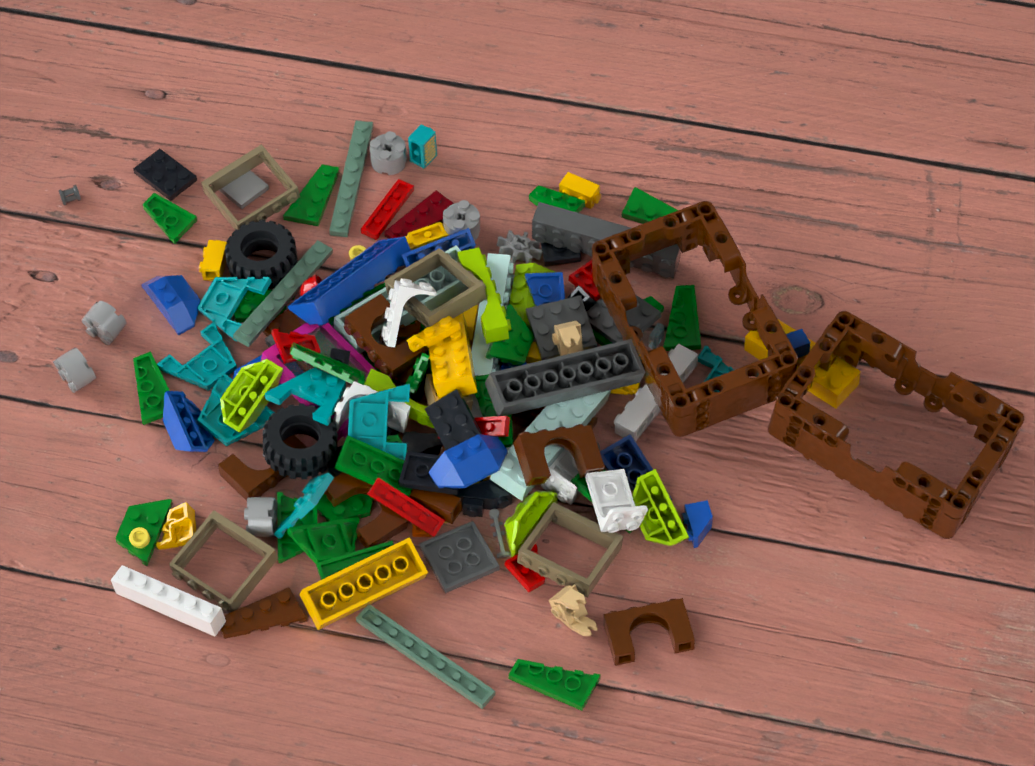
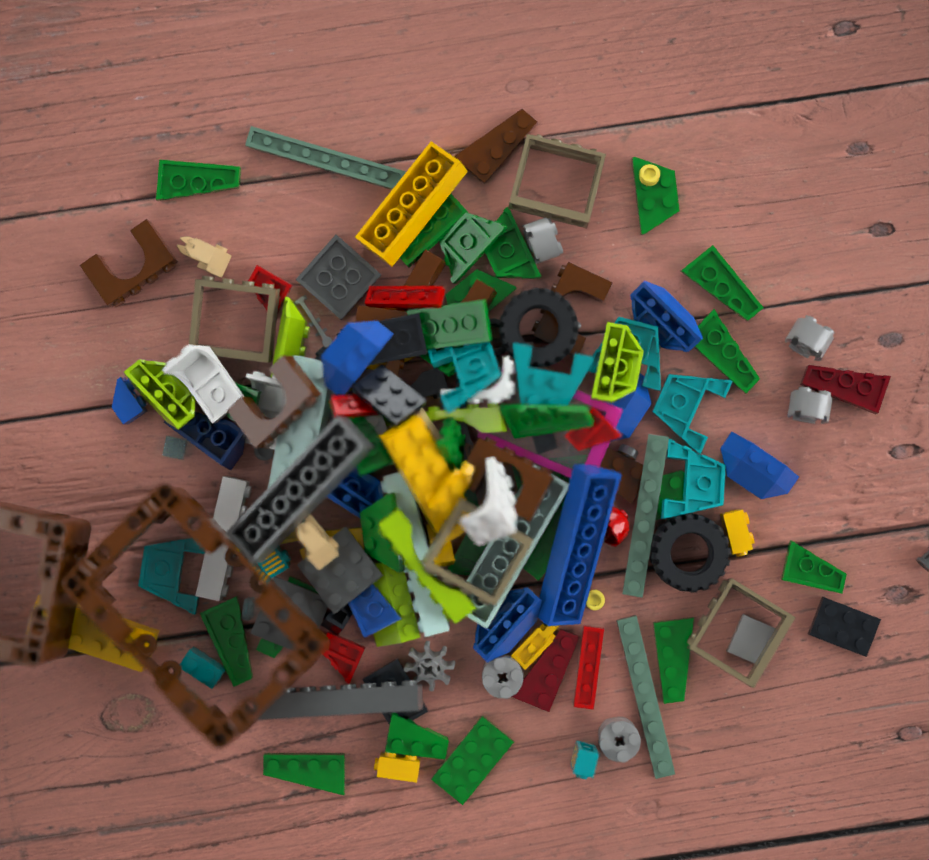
camera: 155 degrees right, 35 degrees up
(62, 330) = (851, 387): none -> dark red wing
(124, 442) = (722, 282): none -> green wing
(168, 600) = (588, 116): white brick -> none
(178, 527) = (619, 207): yellow slope -> none
(312, 493) = (495, 262): teal wing -> none
(516, 179) = (472, 760): none -> green plate
(671, 477) = (174, 447): none -> clear light blue tile
(715, 306) = (202, 667): none -> teal brick
(799, 342) = (91, 636): blue brick -> none

